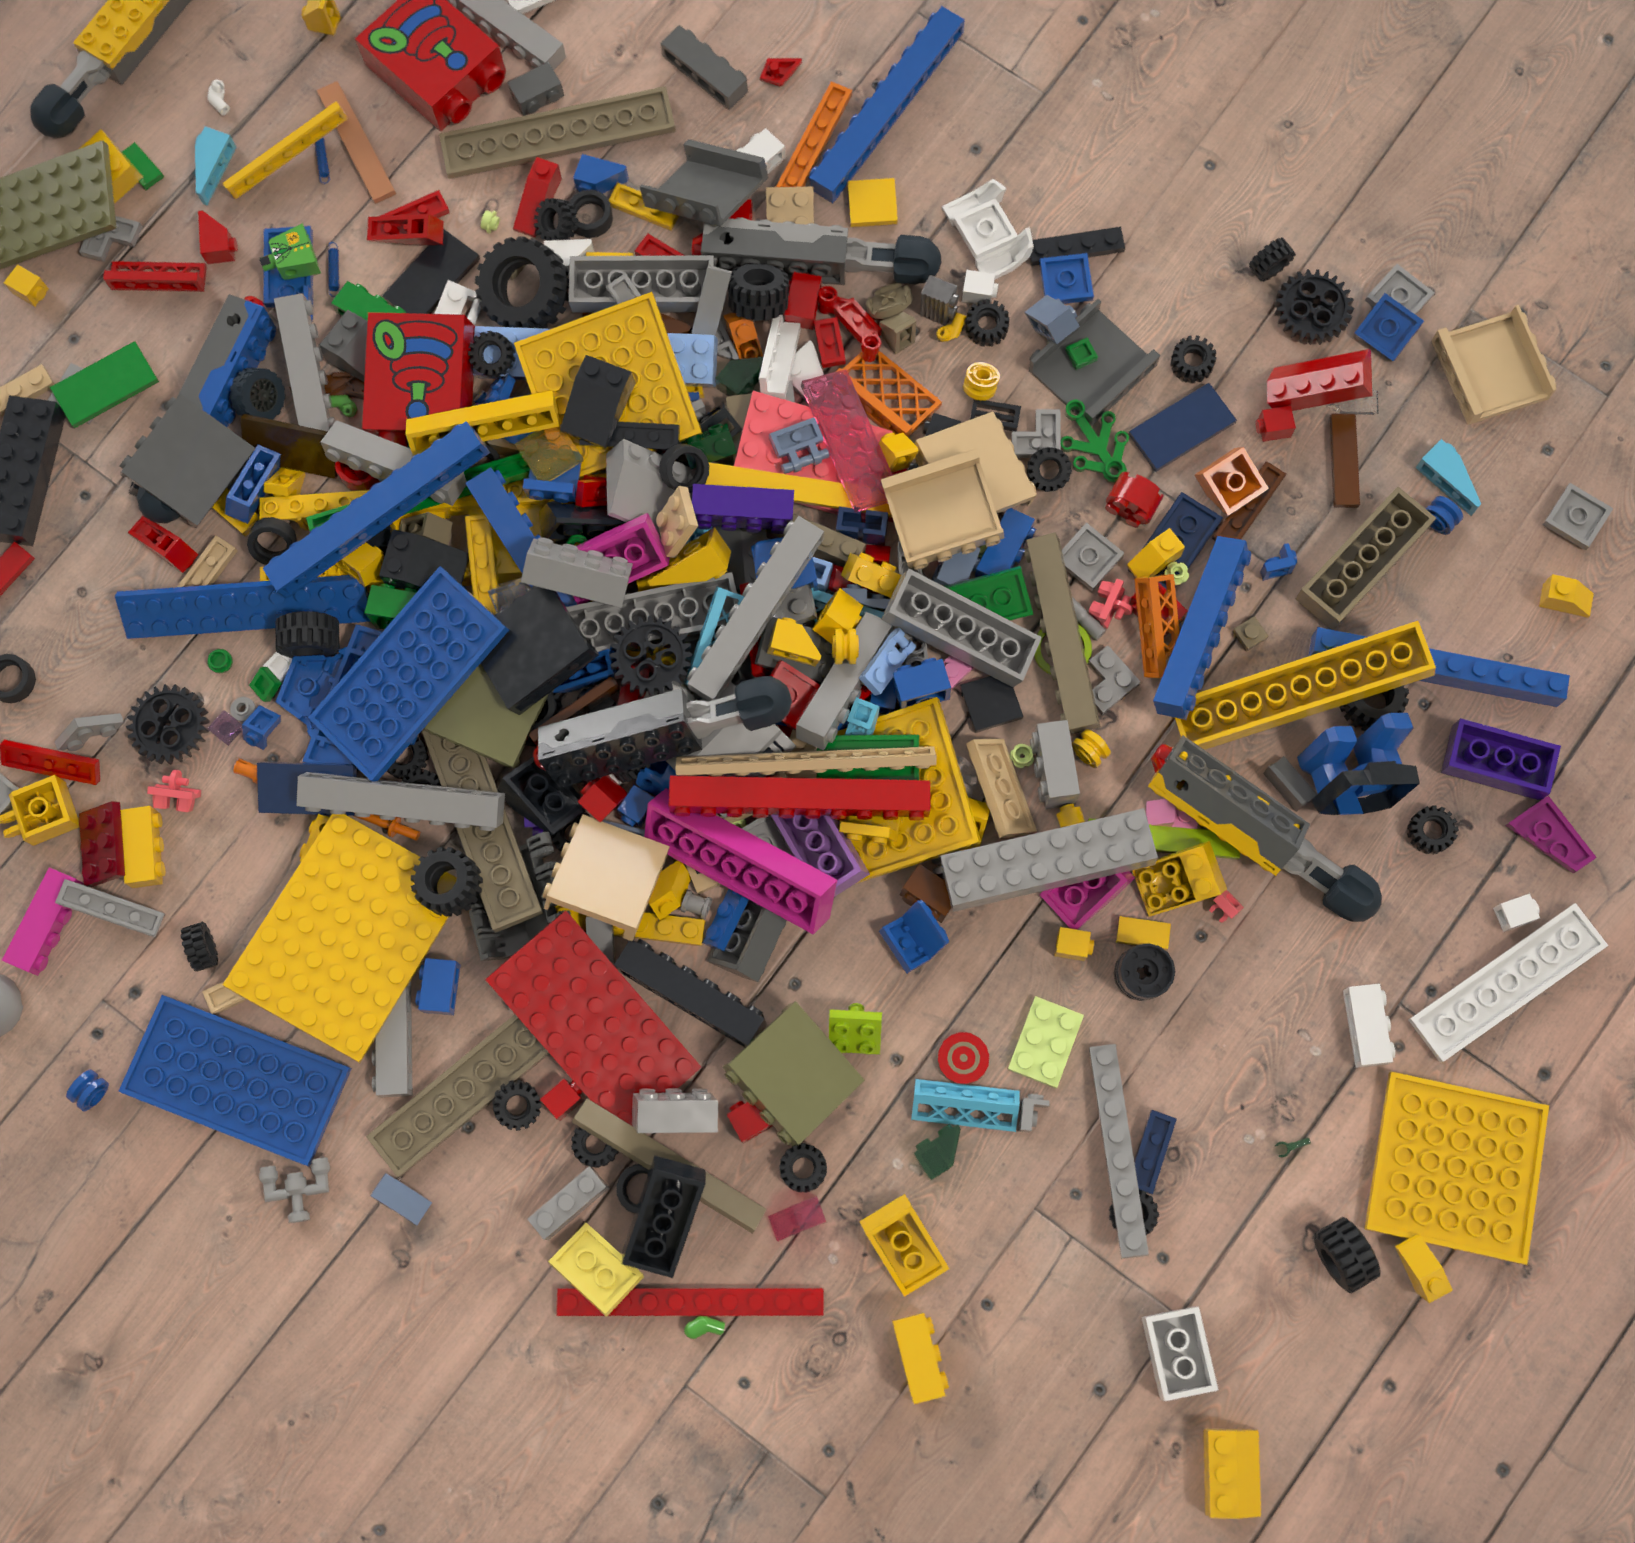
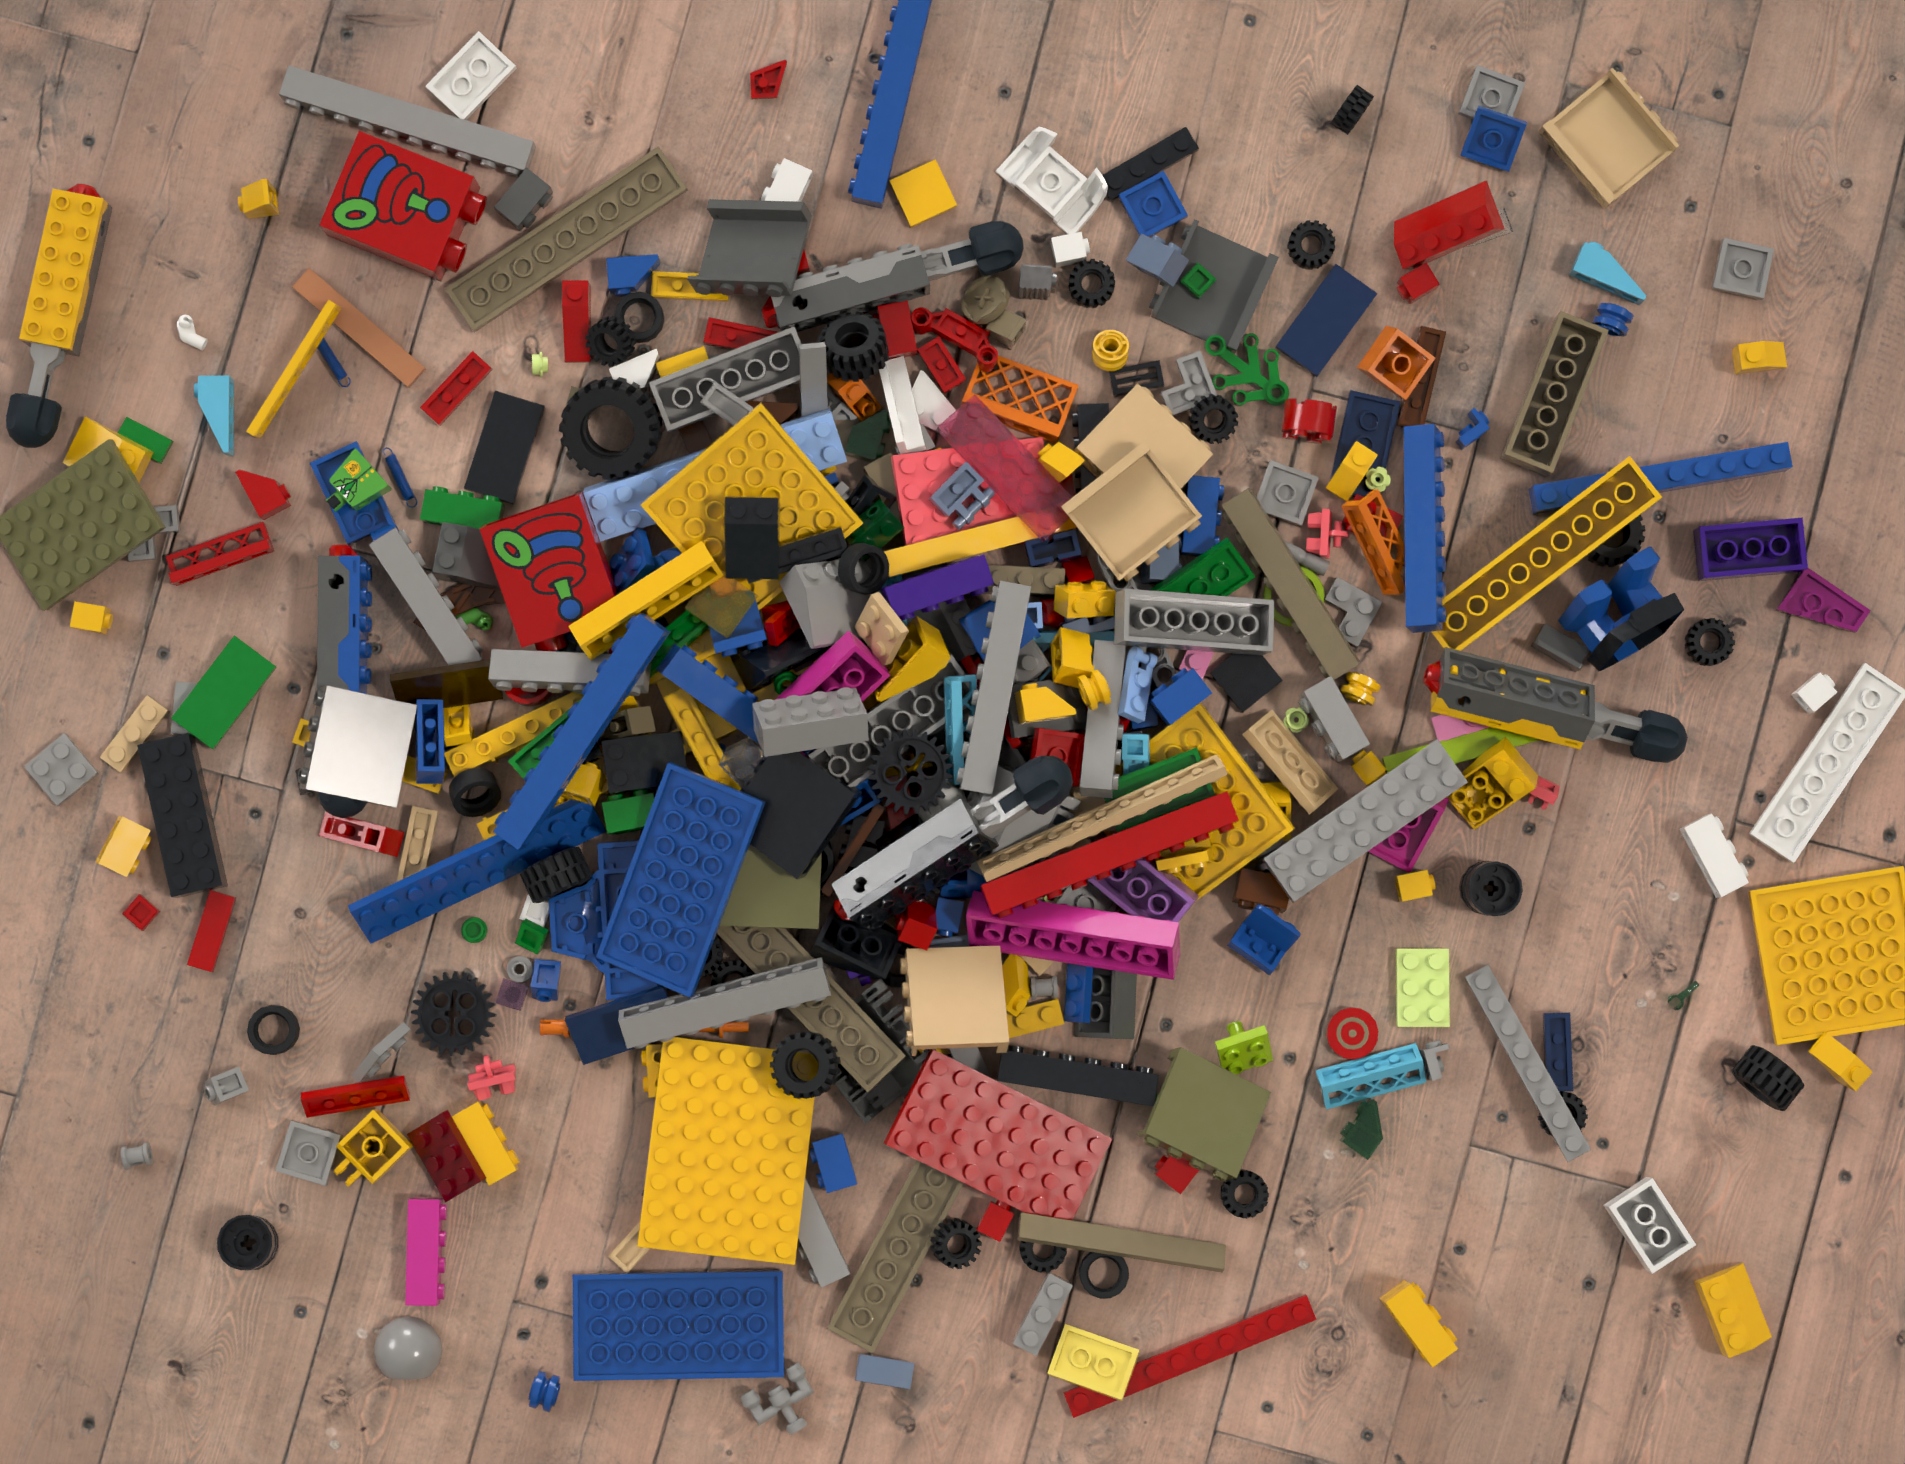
camera: 30 degrees left, 10 degrees up
(110, 908) = (484, 1214): light grey tile -> none
(199, 946) = (589, 1216): black tyre -> none
(258, 383) = (390, 646): black wheel -> none
(406, 229) = (460, 411): red slope -> none
(454, 299) = (541, 473): white plate -> none
(480, 345) = (615, 533): black tyre -> none
(663, 1216) = (1139, 1292): black brick -> none
(675, 1111) = (1108, 1192): light grey brick -> none
(702, 1325) = (1210, 1372): bright green arm -> none
(704, 66) = (689, 108): dark grey brick -> none
(790, 204) = (845, 237): tan plate -> none
(797, 1218) = (1258, 1242): clear pink slope -> none
(816, 136) = (836, 153): orange plate -> none
(904, 1245) = (1364, 1226): yellow slope -> none
(952, 330) = (1059, 303): yellow arm -> none
(1140, 931) = (1474, 848): yellow tile -> none
(1250, 633) = (1469, 511): dark tan plate -> none
(1307, 324) = (1411, 165): black gear -> none
(1344, 461) = (1497, 295): reddish brown tile -> none

